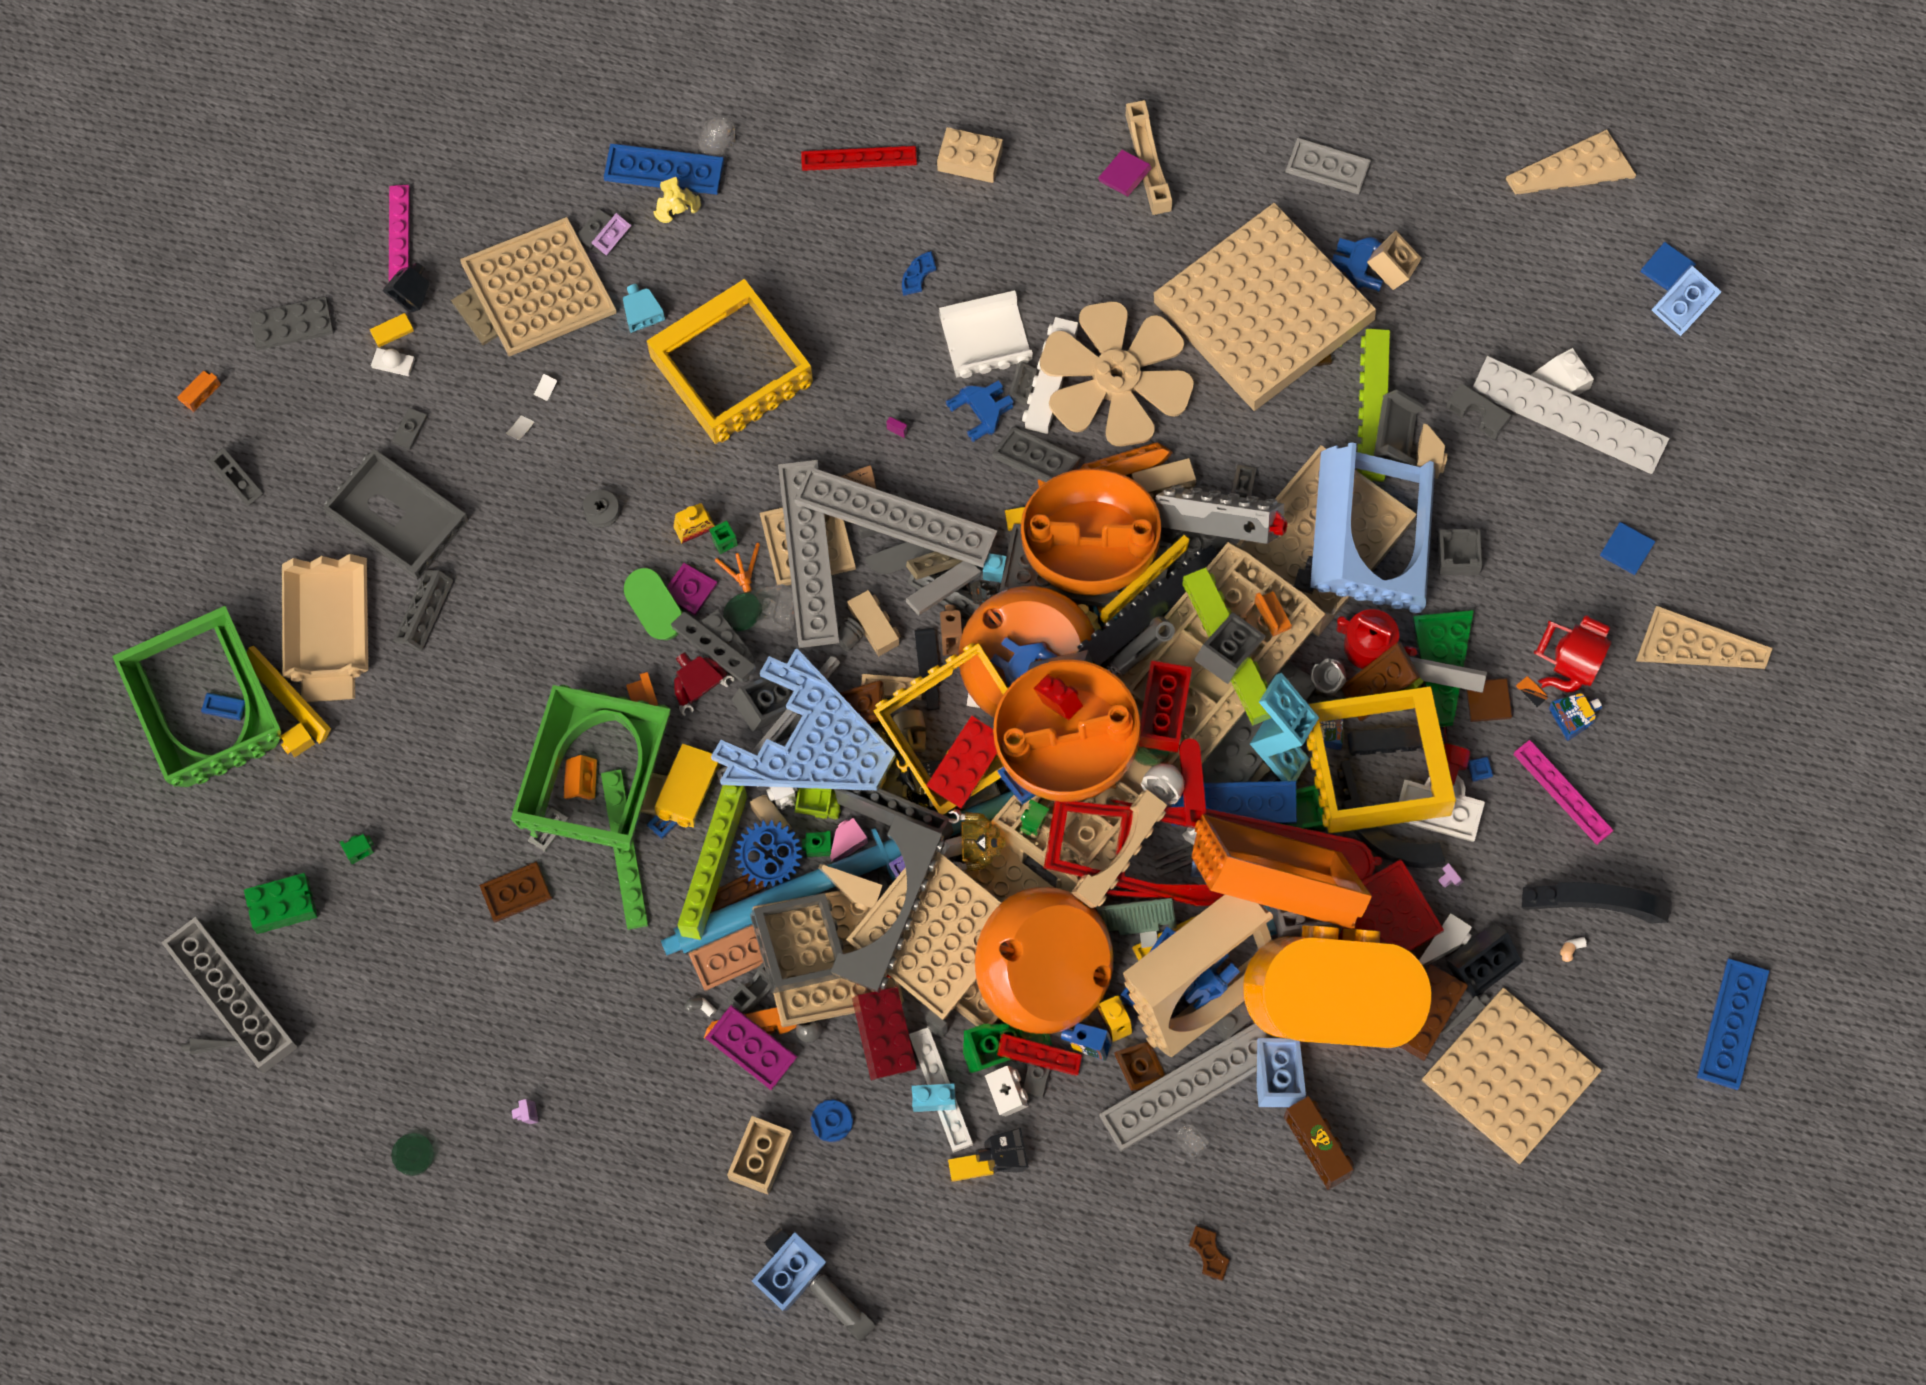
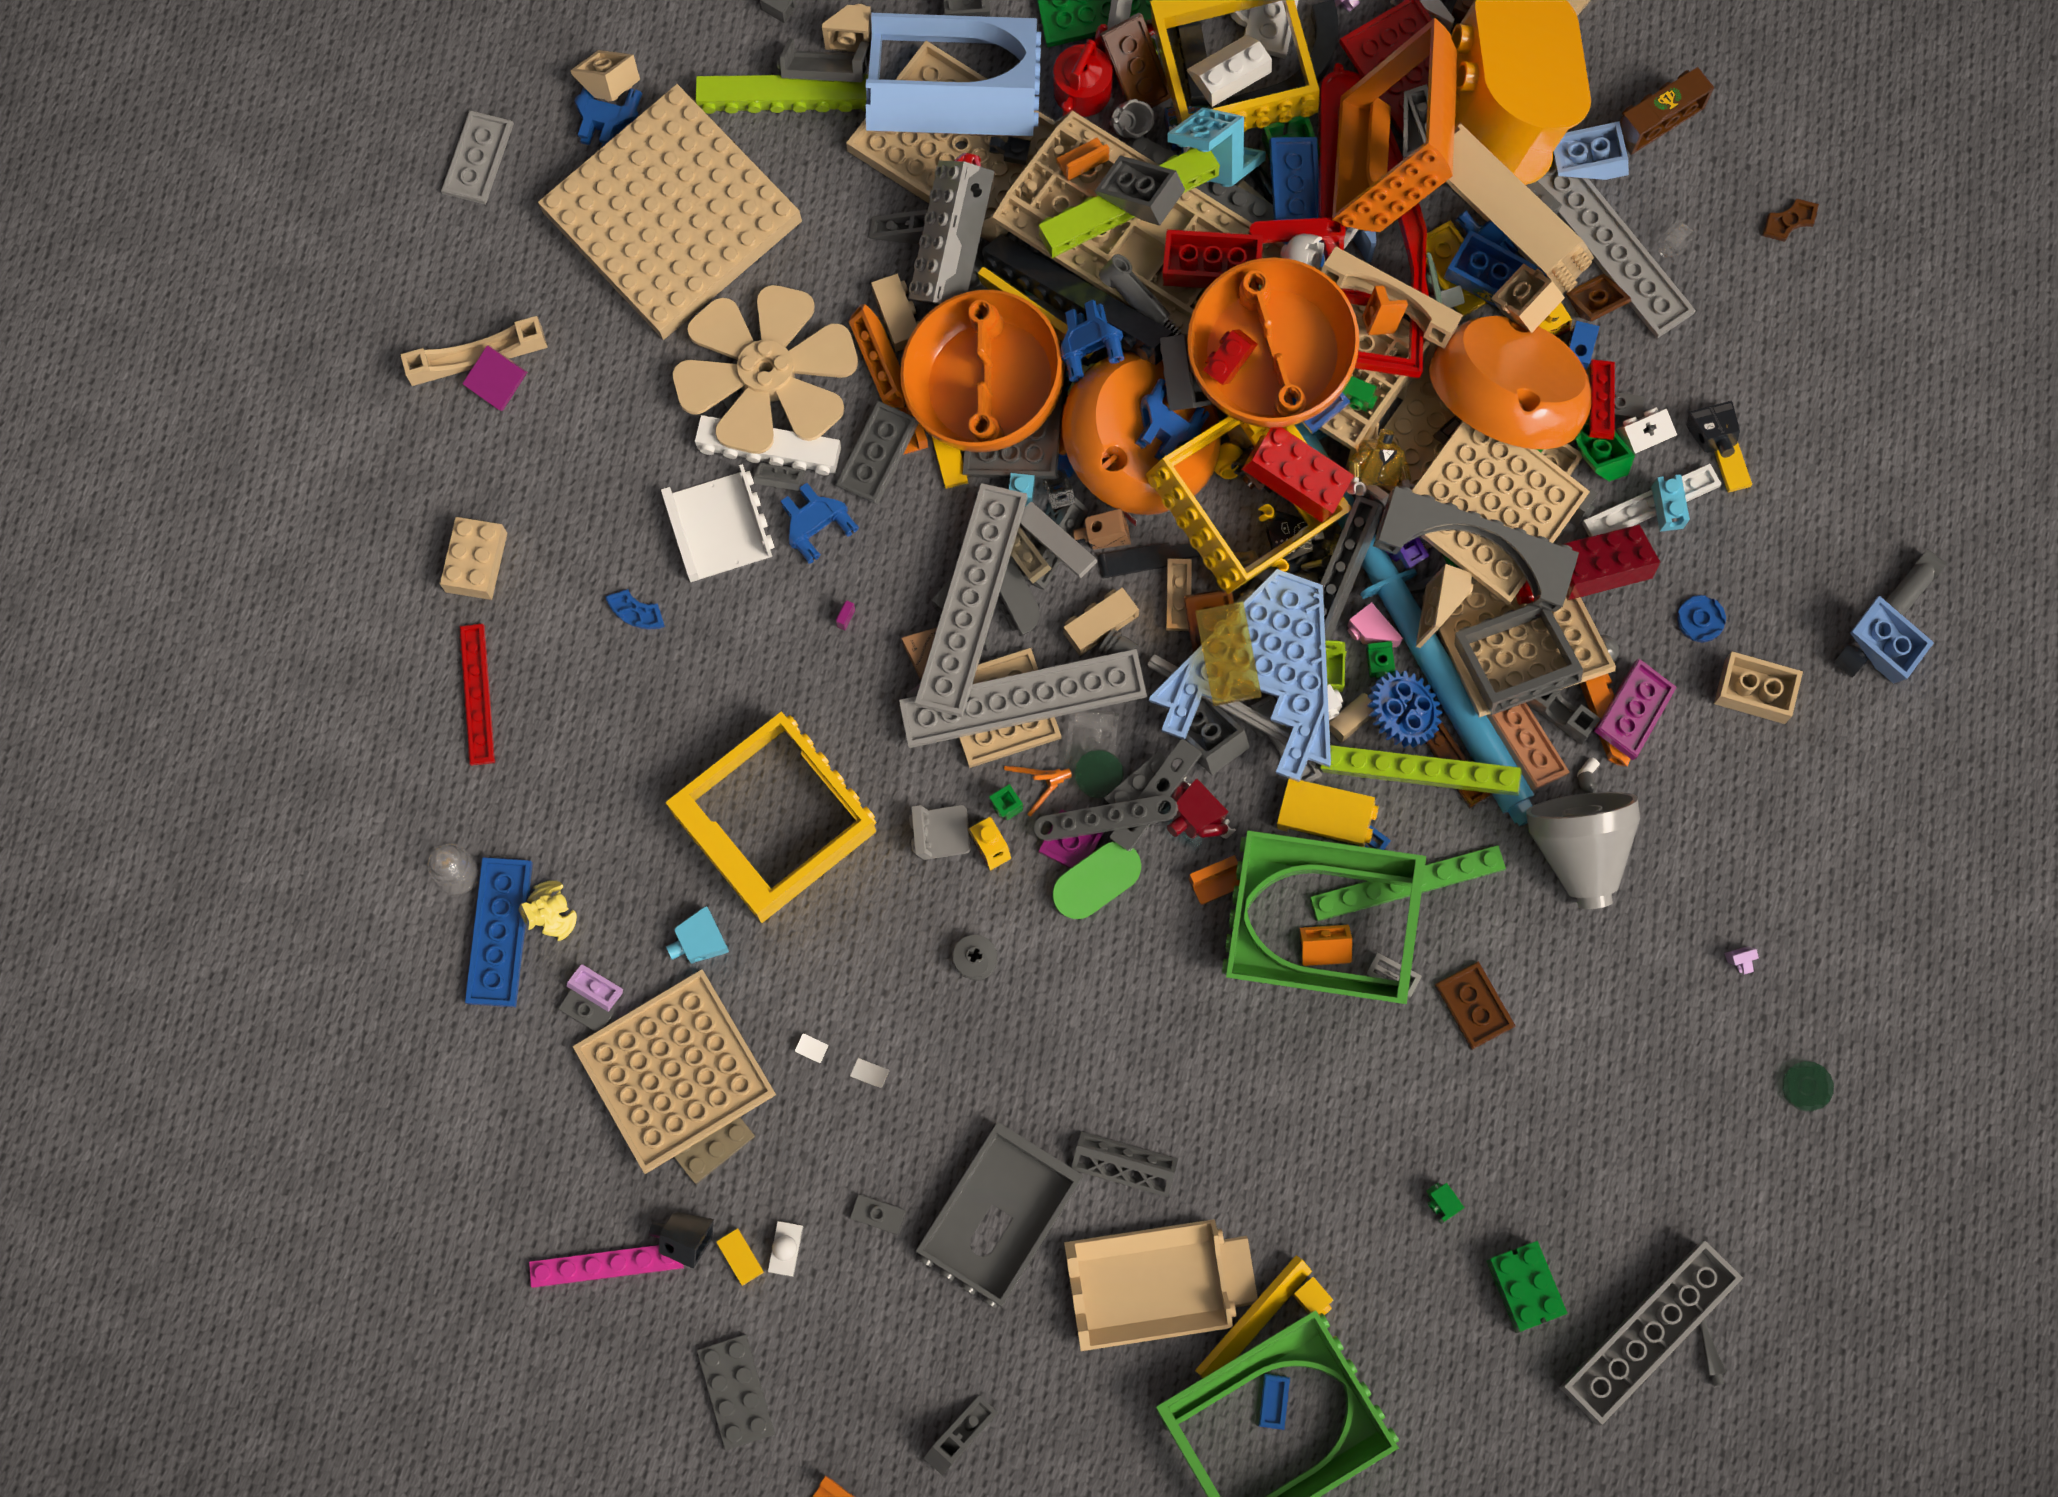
camera: 95 degrees left, 5 degrees up
(637, 983) = (1587, 841): none -> light grey cone
(698, 608) = (1106, 818): none -> dark grey plate
(706, 485) = (940, 832): none -> light grey bracket
(823, 707) = (1228, 654): none -> clear yellow plate
(1101, 840) = (1381, 314): none -> orange panel
(1105, 604) = (1089, 336): none -> blue connector
(1111, 981) = (1528, 297): none -> tan brick
(1354, 742) = (1231, 69): none -> white slope

